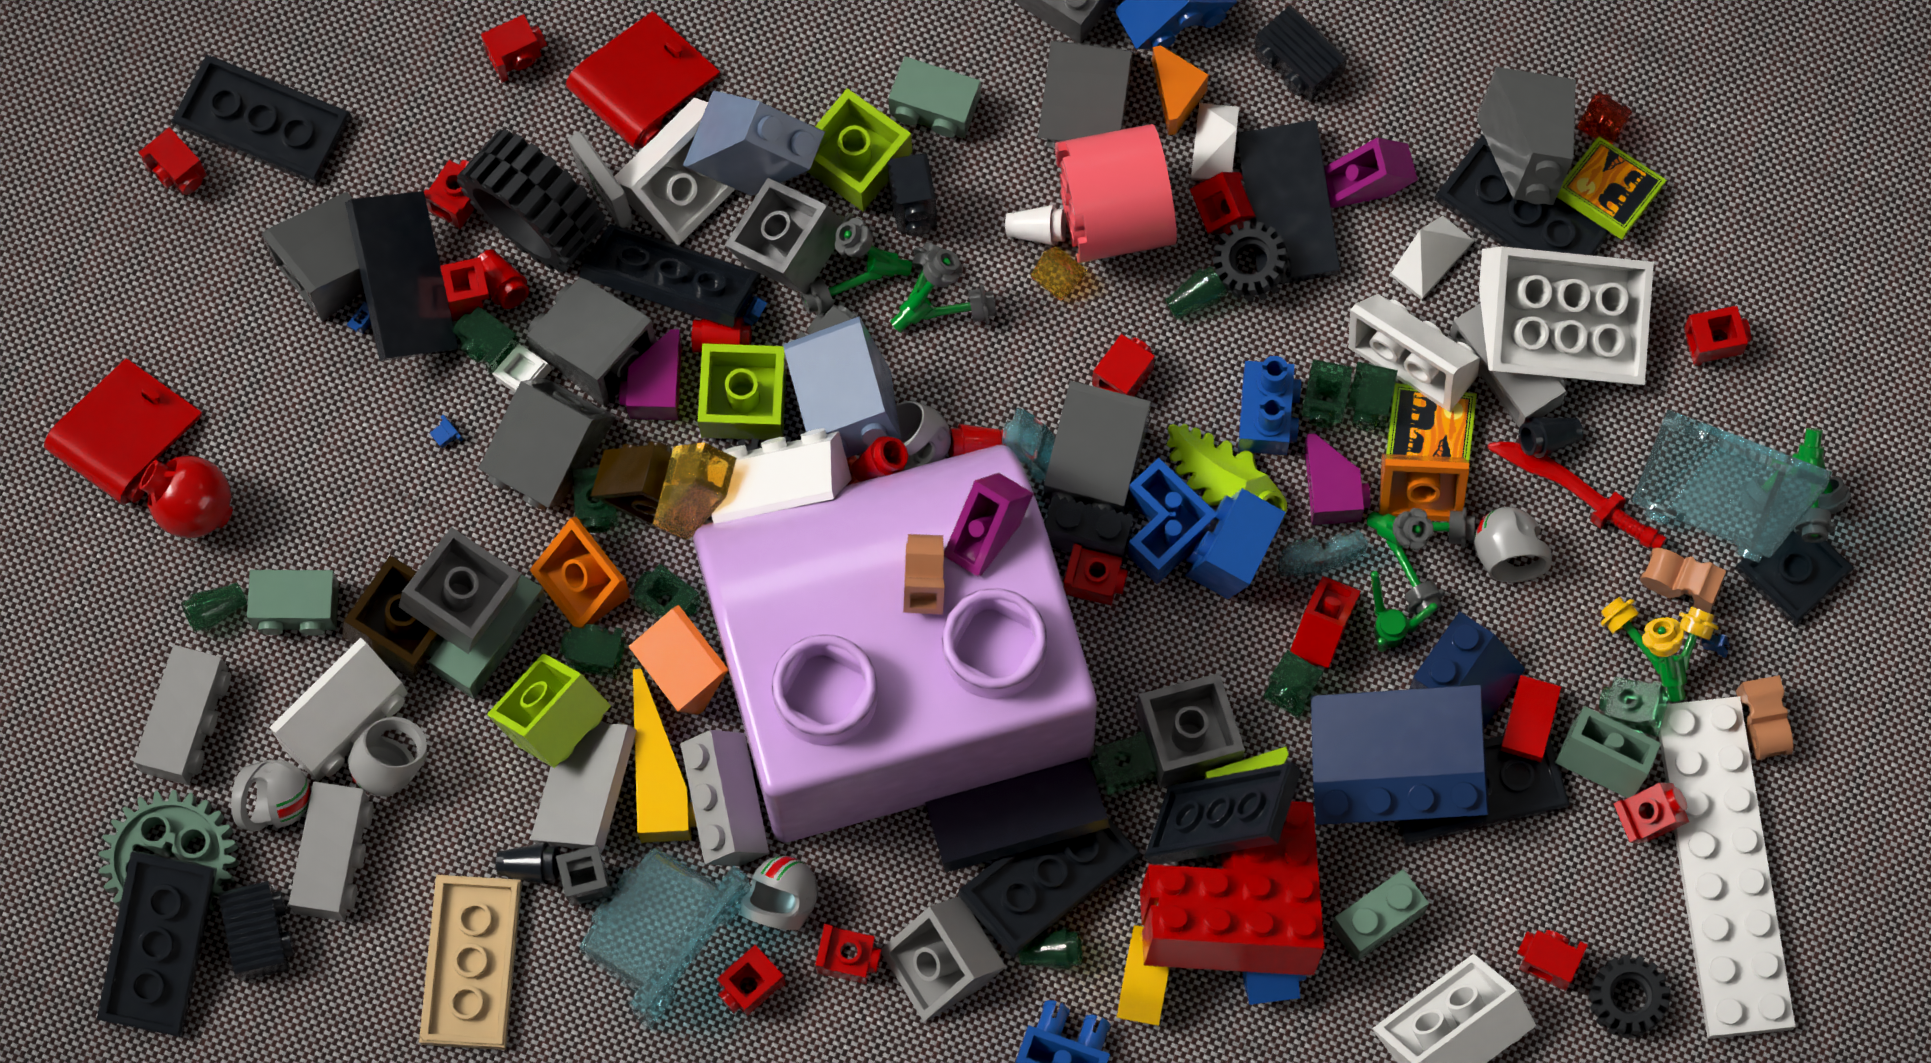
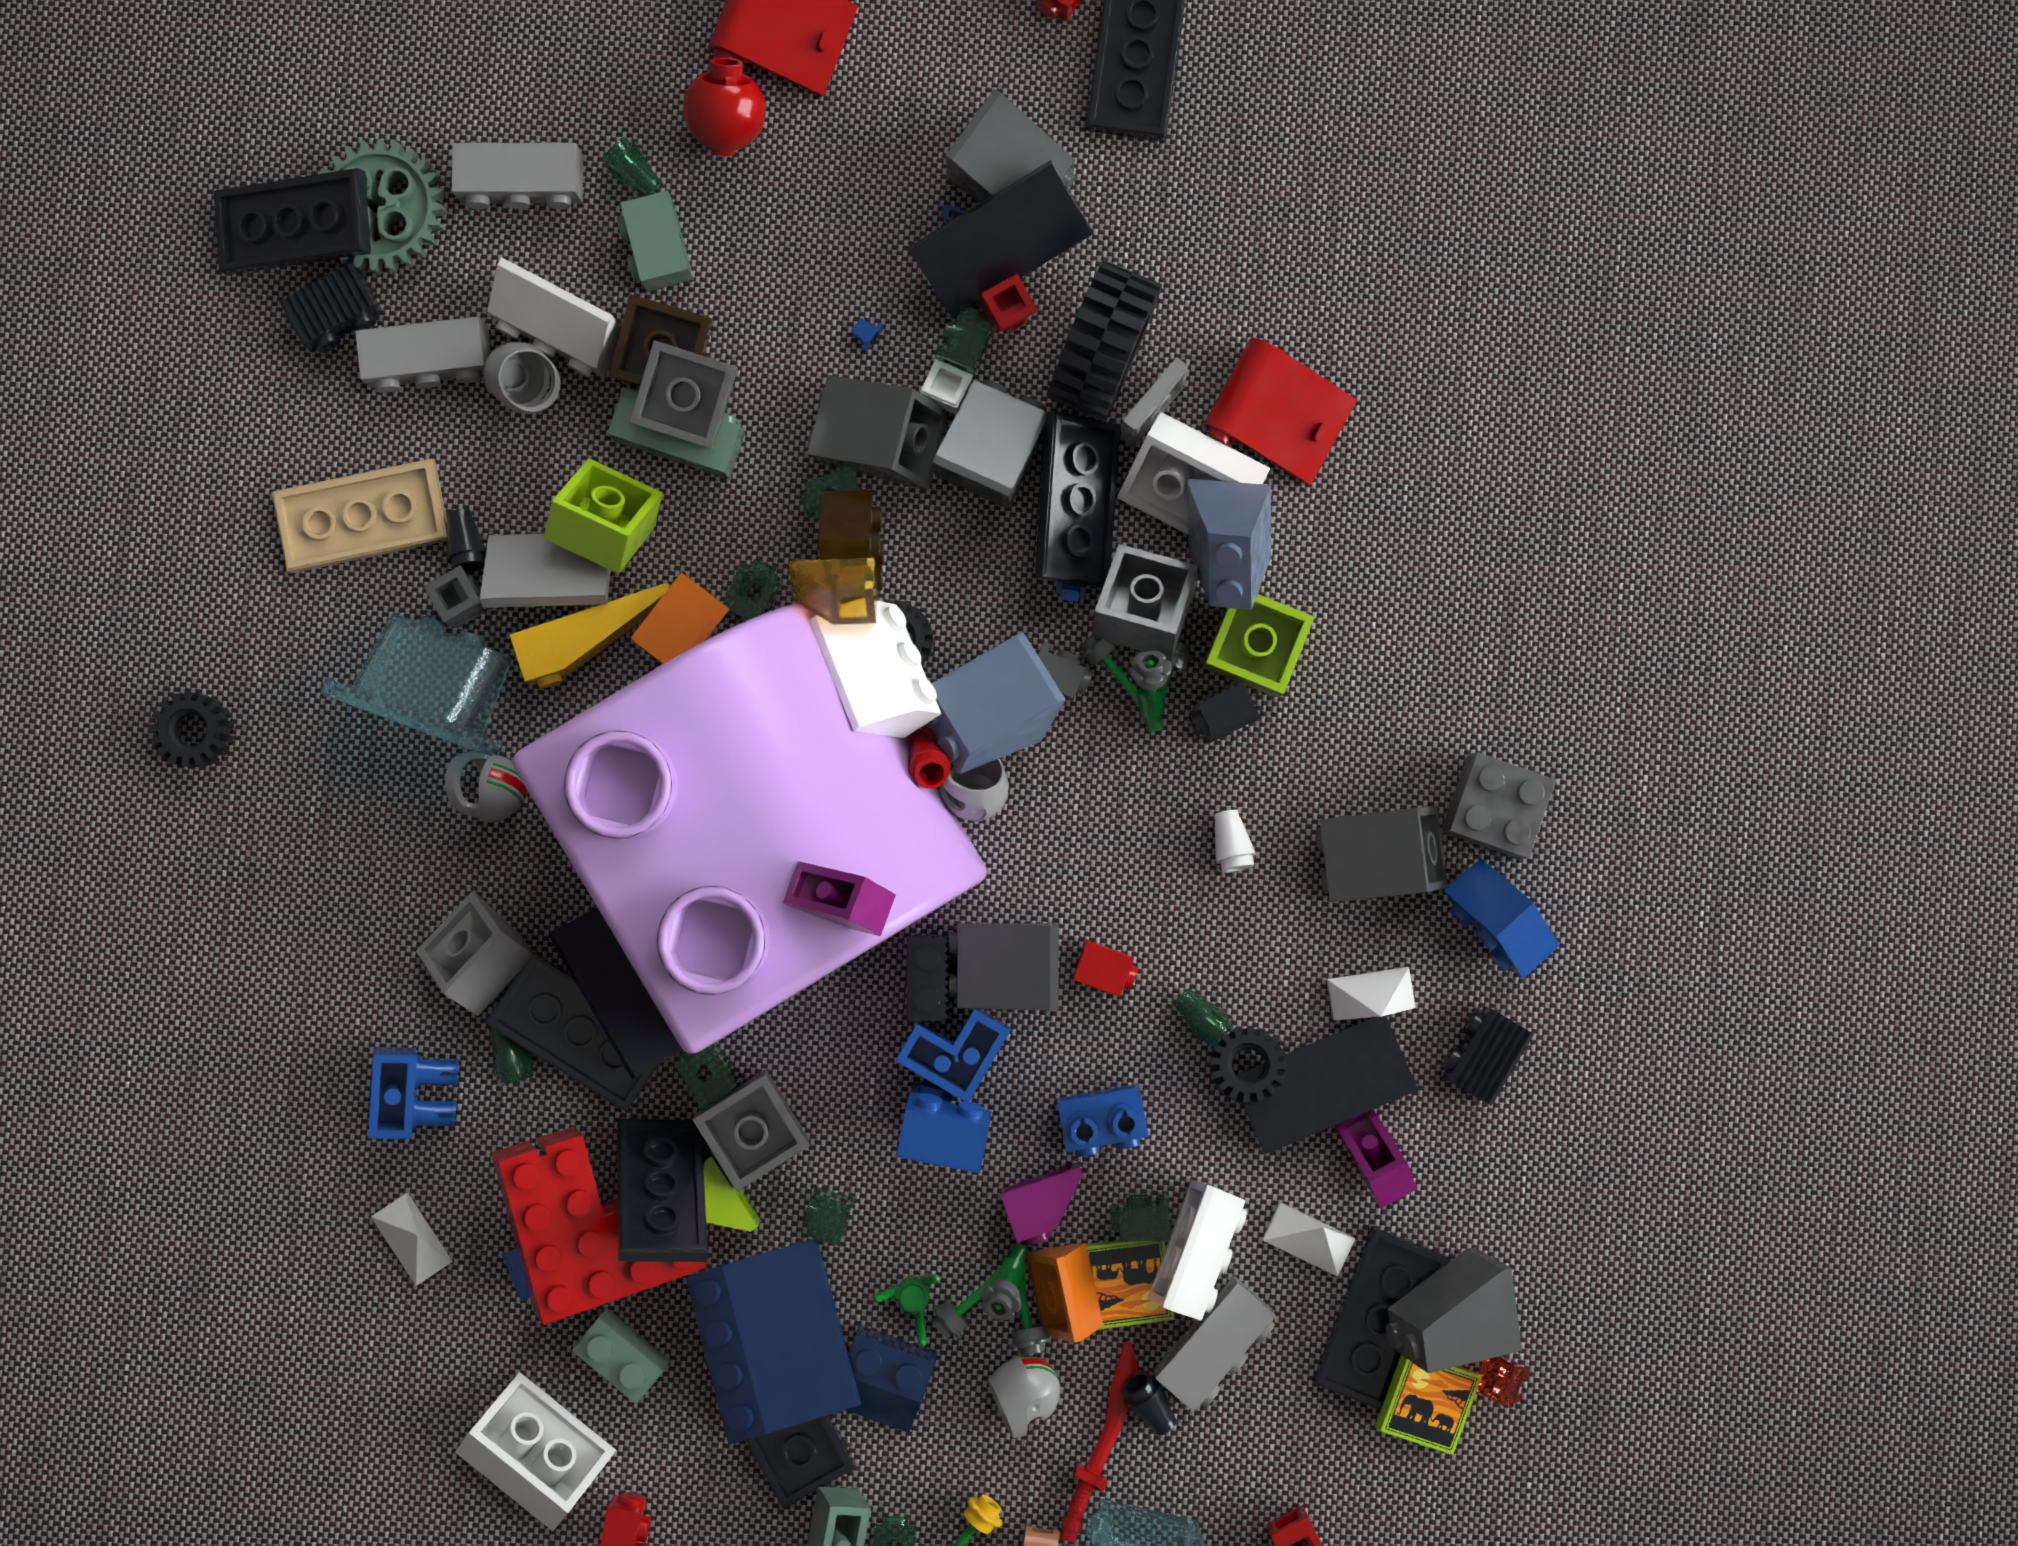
camera: 75 degrees right, 15 degrees up
(281, 795) = (458, 292): light grey helmet -> none
(449, 203) = (1100, 250): red brick -> none
(503, 281) = (1031, 339): red cone -> none
(513, 45) = (1277, 274): red brick -> none
(580, 576) = (754, 505): orange slope -> none
(594, 650) = (684, 539): clear green brick -> none
(654, 381) = (968, 517): magenta slope -> none
(710, 332) = (1022, 567): red brick -> none
(724, 798) = (561, 698): light grey brick -> none
(742, 391) = (975, 604): lime brick -> none
(753, 967) = (386, 777): red brick -> none
(833, 964) = (465, 852): red brick -> none
(924, 574) = (765, 850): nougat leg -> none
(934, 98) = (1337, 704): sand green brick -> none
(940, 269) = (1139, 766): plant -> none
(973, 438) = (991, 845): red cone -> none
(1030, 442) = (995, 898): clear light blue slope -> none
(1058, 272) = (1190, 876): clear yellow slope -> none
(1083, 585) = (889, 980): red brick -> none
(1116, 193) = (1275, 916): coral brick -> none
(1142, 985) = (477, 1145): yellow brick -> none
(1178, 86) = (1416, 942): orange slope -> none
(1215, 196) = (1302, 1021): red brick -> none
(1218, 469) = (1023, 1097): lime plant -> none
(1311, 558) = (960, 1198): clear light blue slope -> none
(1324, 622) = (900, 1230): red slope -> none
(1331, 381) = (1145, 1183): clear green brick -> none
(1530, 718) = (855, 1453): red slope -> none
(1566, 314) = (1273, 1393): white slope -> none

